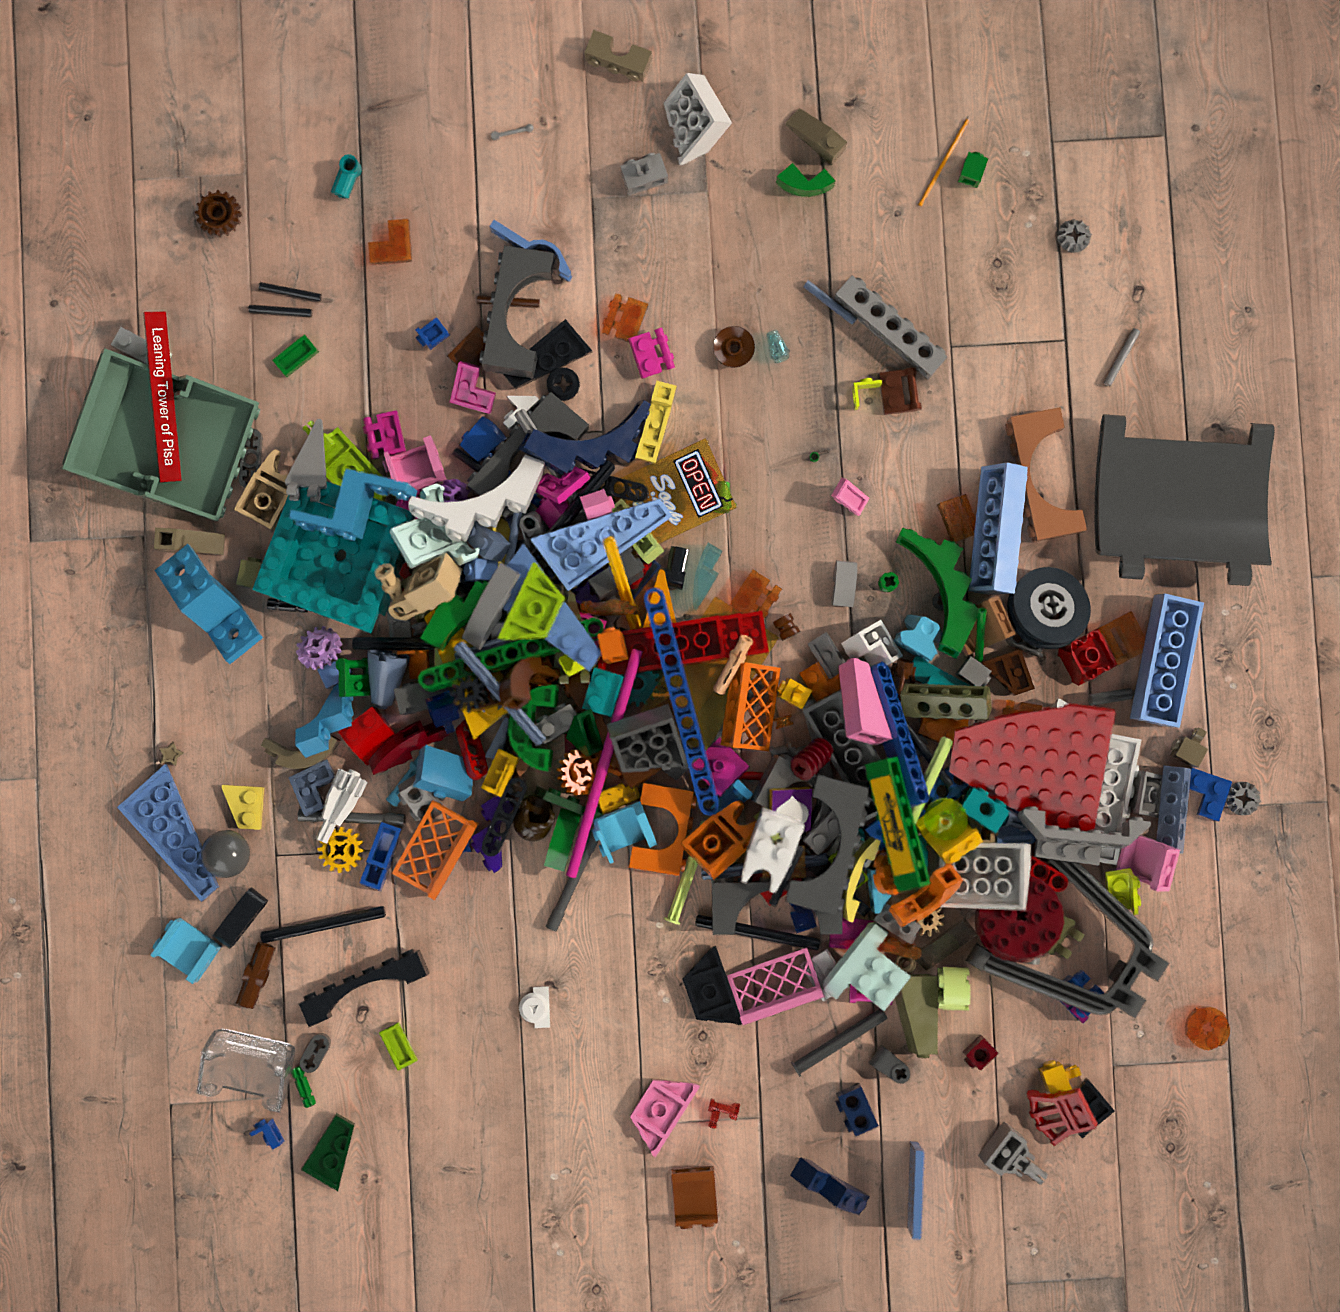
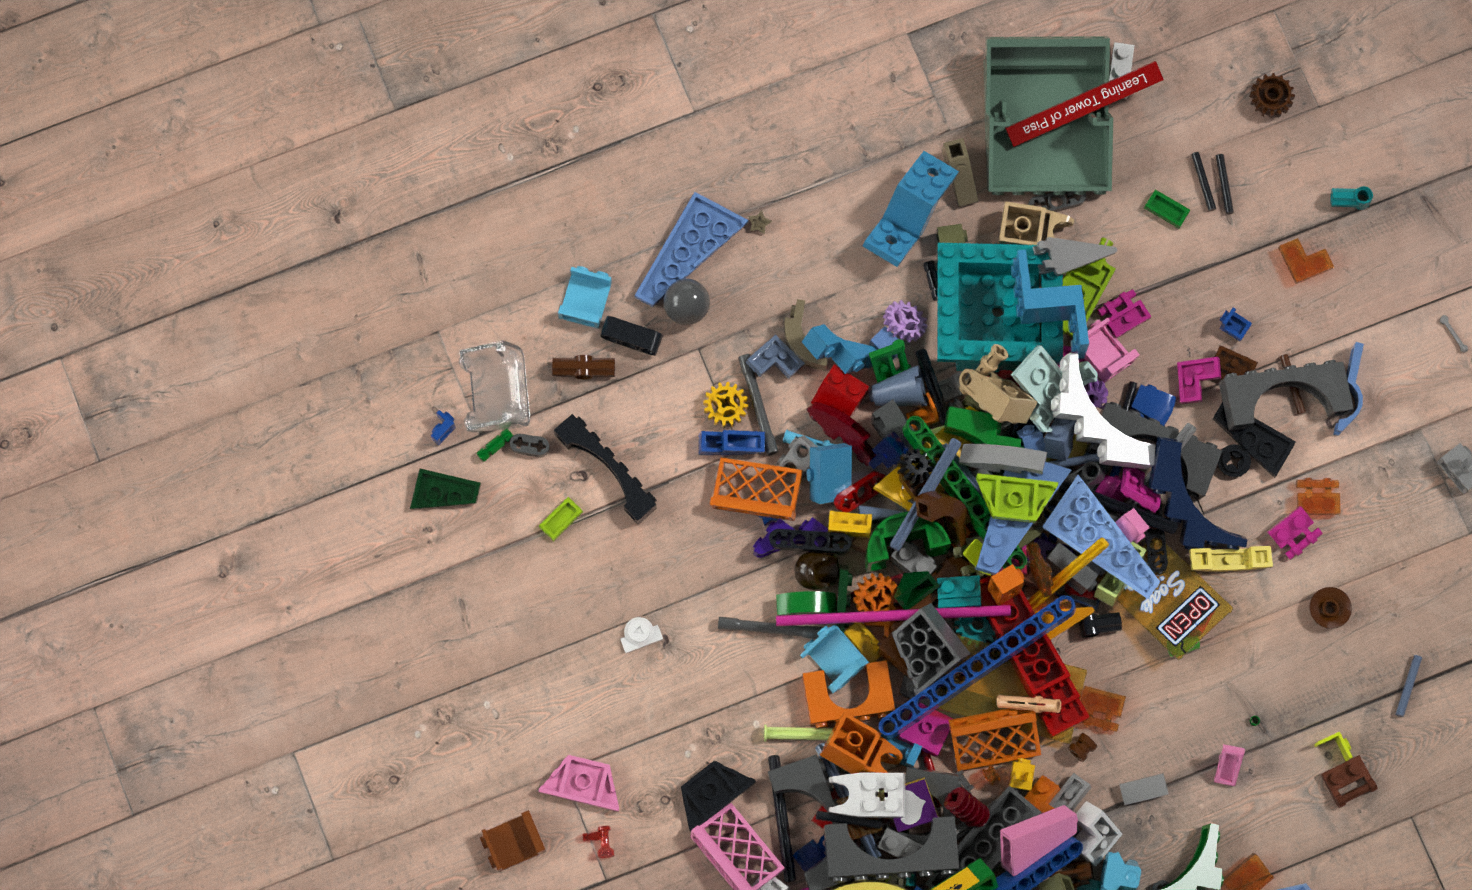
camera: 65 degrees right, 10 degrees down
(245, 805) = (735, 305): light yellow wing -> none
(323, 924) = (650, 412): black axle -> none
(340, 801) = (771, 388): white piece -> none
(519, 402) = (1202, 428): white slope -> none
(705, 574) = (1102, 653): clear light blue slope -> none
(777, 348) = (1345, 650): clear light blue cone -> none
(881, 583) = (1155, 833): green bush -> none
(893, 338) = (1383, 798): light grey brick -> none

